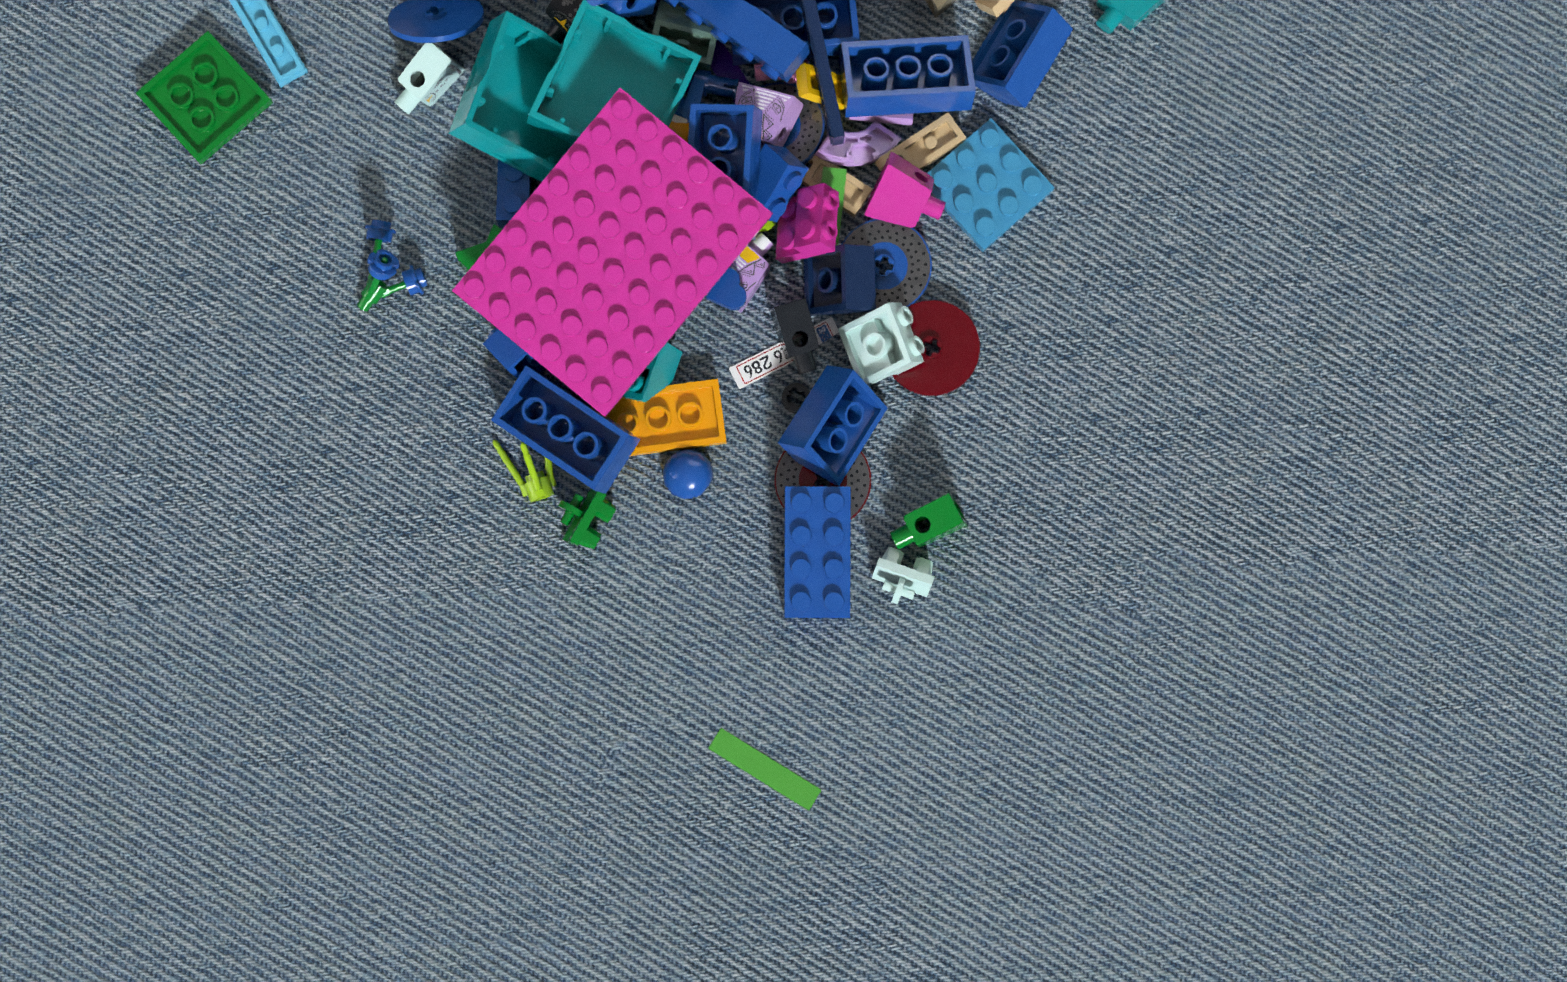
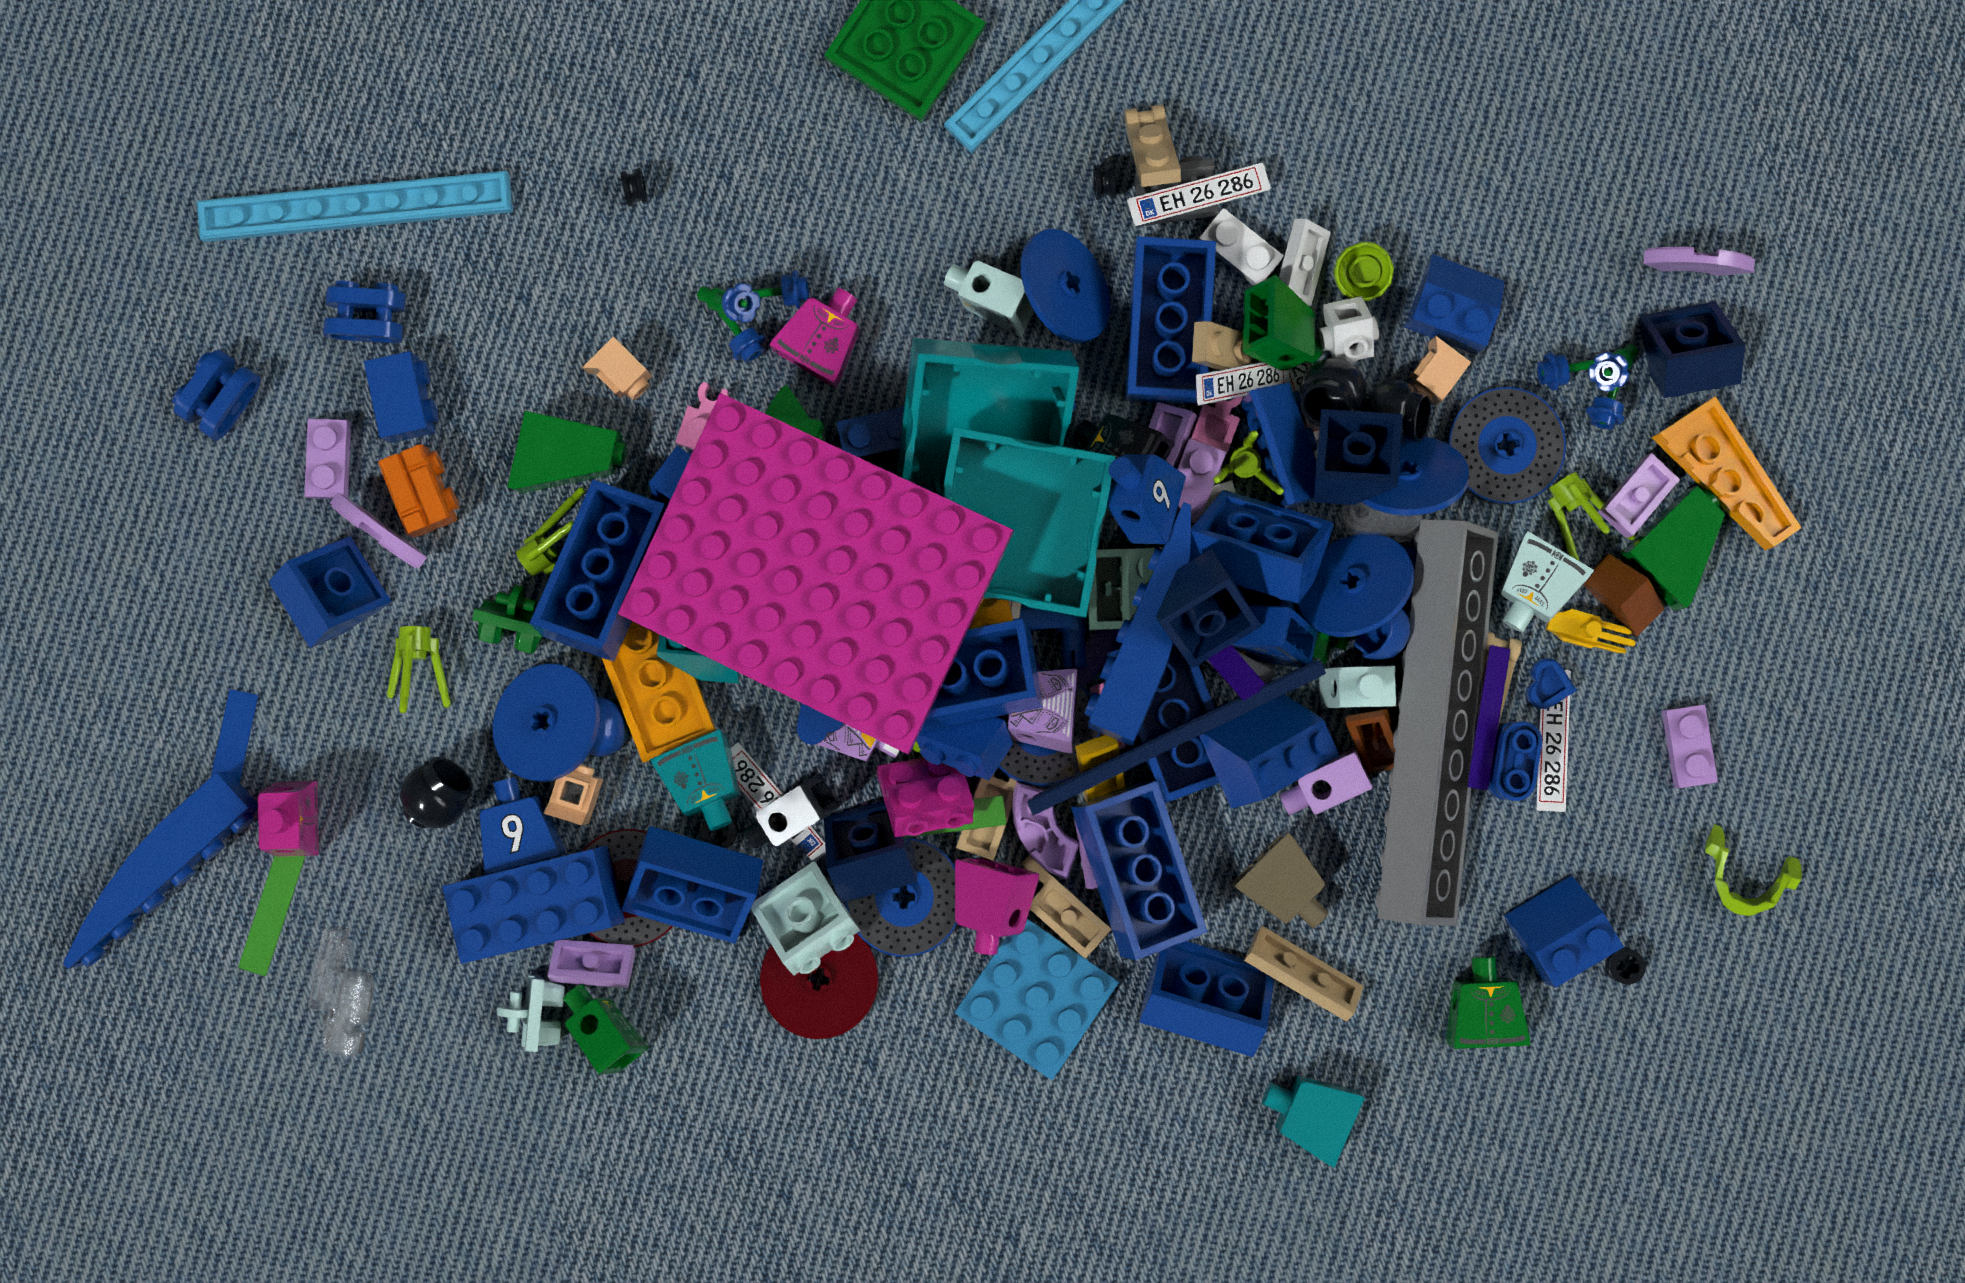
camera: 80 degrees right, 5 degrees up
(214, 568) = (354, 206): none -> medium azure tile
(262, 337) = (634, 187): none -> black bush
(289, 586) = (382, 299): none -> blue brick
(319, 710) = (211, 374): none -> blue brick
(381, 563) = (401, 397): none -> blue brick
(407, 383) = (619, 370): none -> light nougat window
(415, 638) = (327, 458): none -> lavender plate
(425, 221) = (820, 337): none -> dark pink torso
(461, 444) = (562, 453): none -> green slope
(461, 567) = (419, 490): none -> orange brick
(468, 333) = (695, 419): none -> bright pink plate
(485, 606) = (387, 537): none -> lavender tile
(523, 659) = (329, 591): none -> blue slope
(585, 601) = (413, 645): none -> lime plant
(640, 778) = (235, 733): none -> blue sticker
(681, 485) = (572, 722): none -> blue piece
(700, 732) = (289, 819): none -> dark pink torso
(706, 843) = (163, 860): none -> blue slope
(709, 610) = (435, 793): none -> black piece
(737, 502) = (575, 796): none -> light nougat window
(750, 398) = (701, 777): none -> teal torso
(754, 554) = (517, 830): none -> blue torso
(850, 725) = (340, 992): none -> clear plate
(875, 520) = (591, 963): none -> lavender plate

